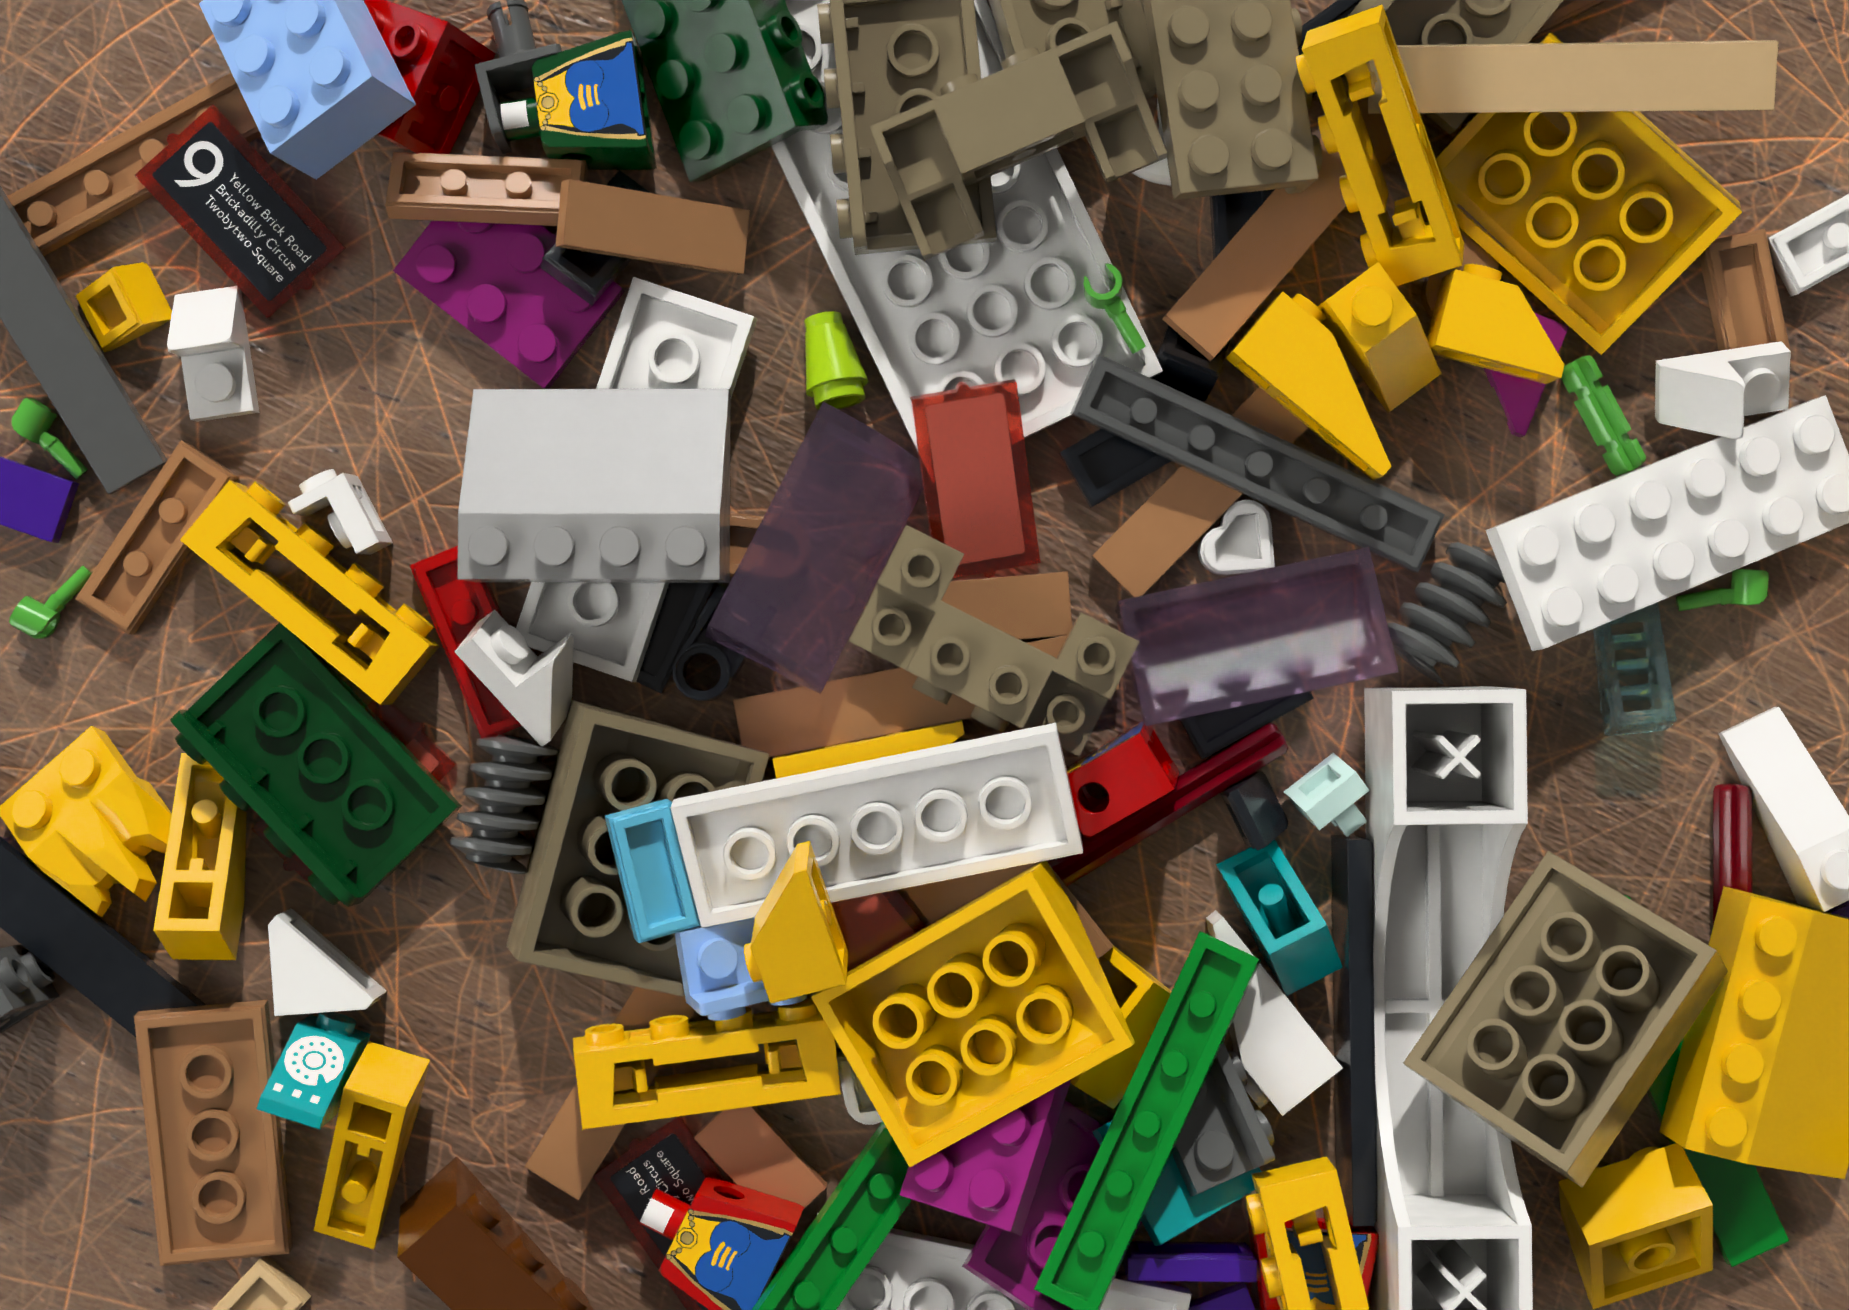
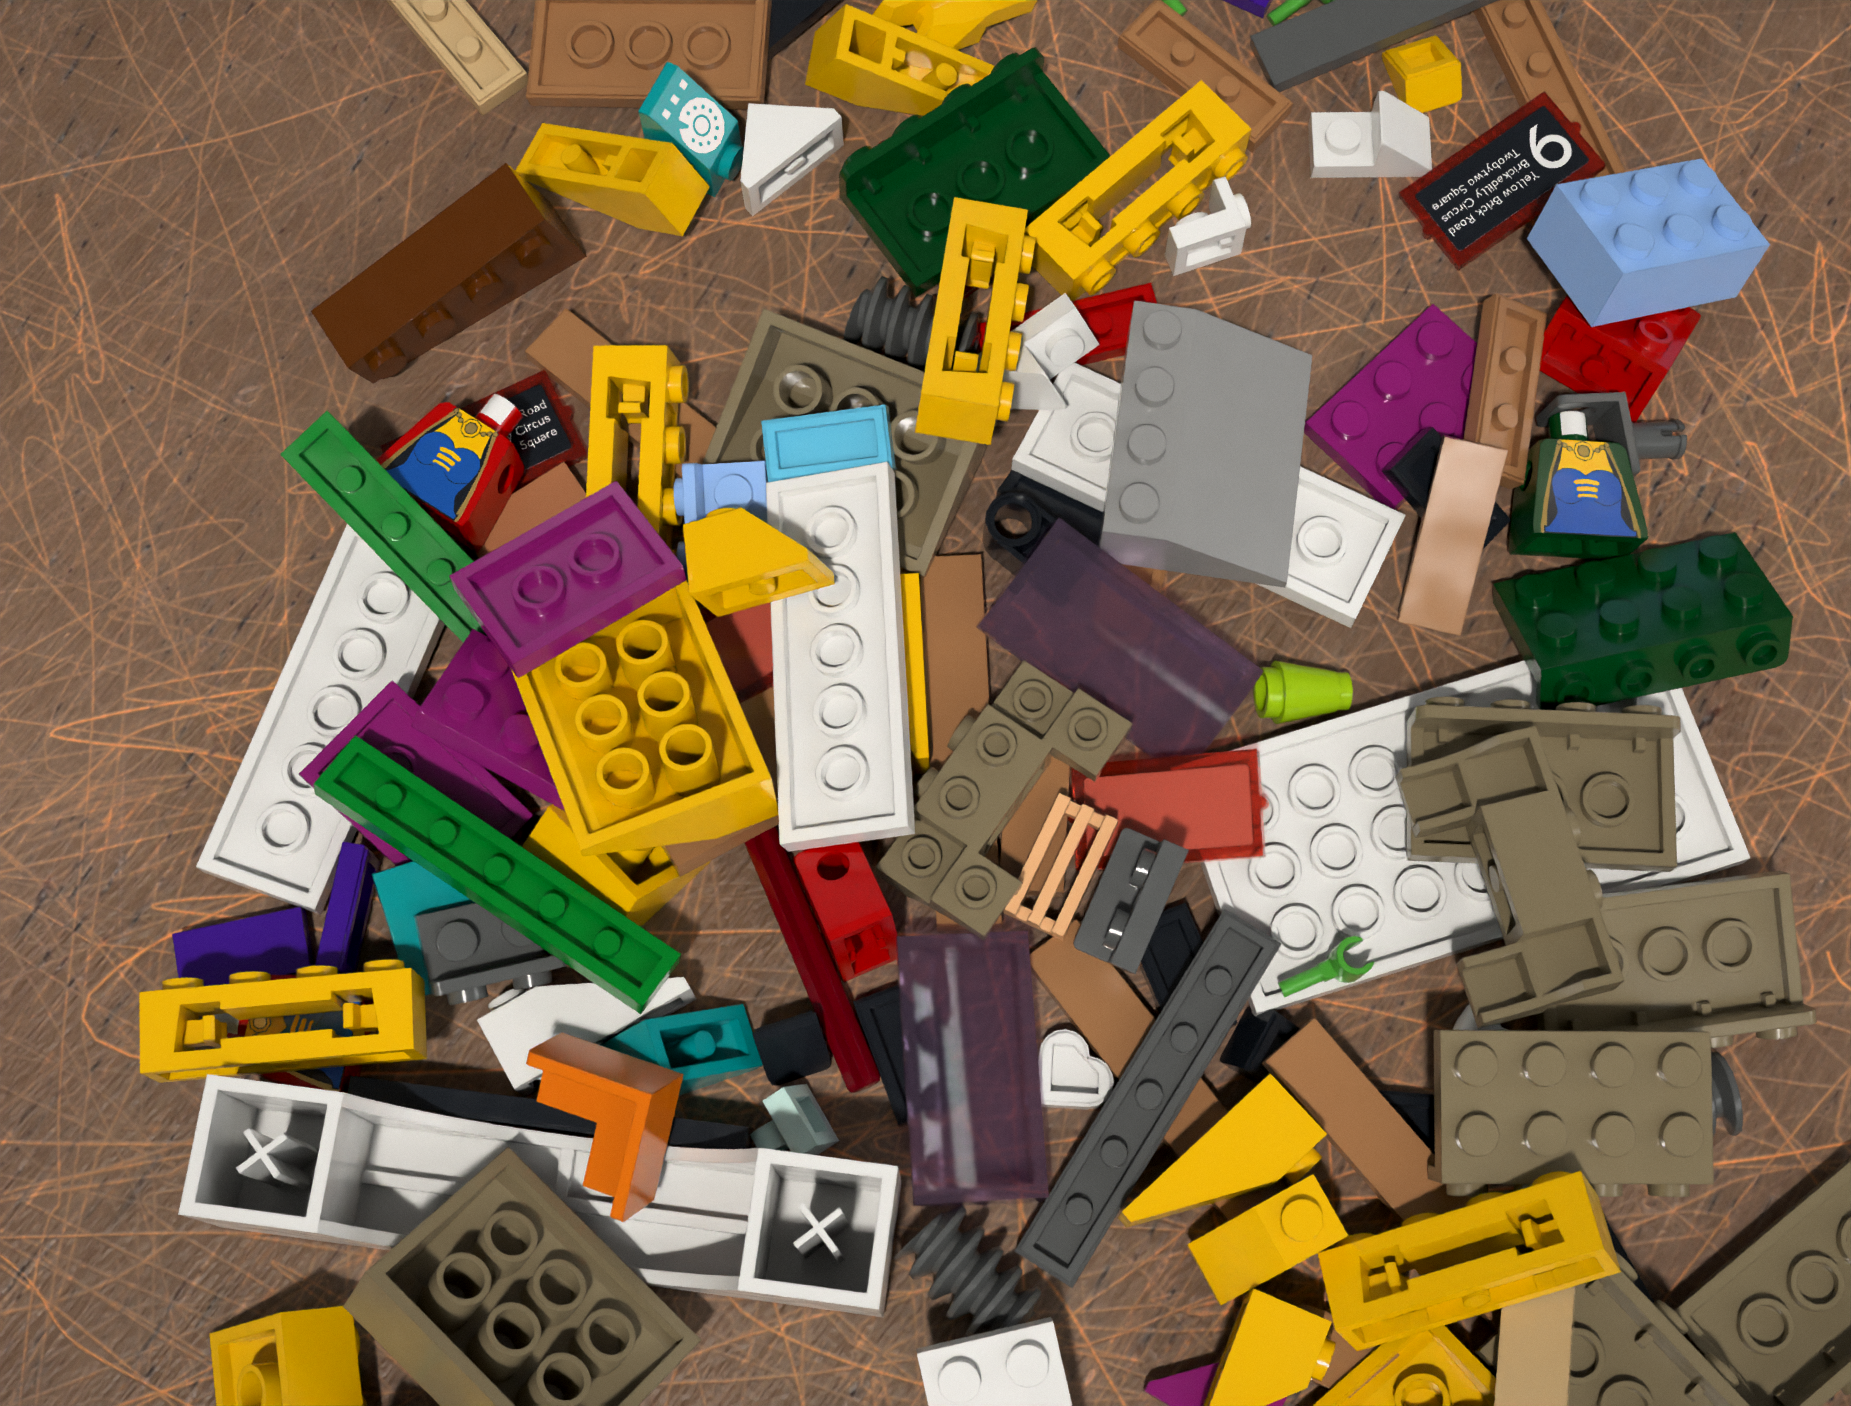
camera: 100 degrees right, 15 degrees down
(404, 738) = (961, 401): none -> yellow brick
(844, 1109) = (567, 578): none -> magenta plate
(993, 560) = (1084, 817): none -> light nougat tile
(1078, 504) = (1129, 899): none -> dark grey bracket
(1349, 955) = (628, 1102): none -> orange panel

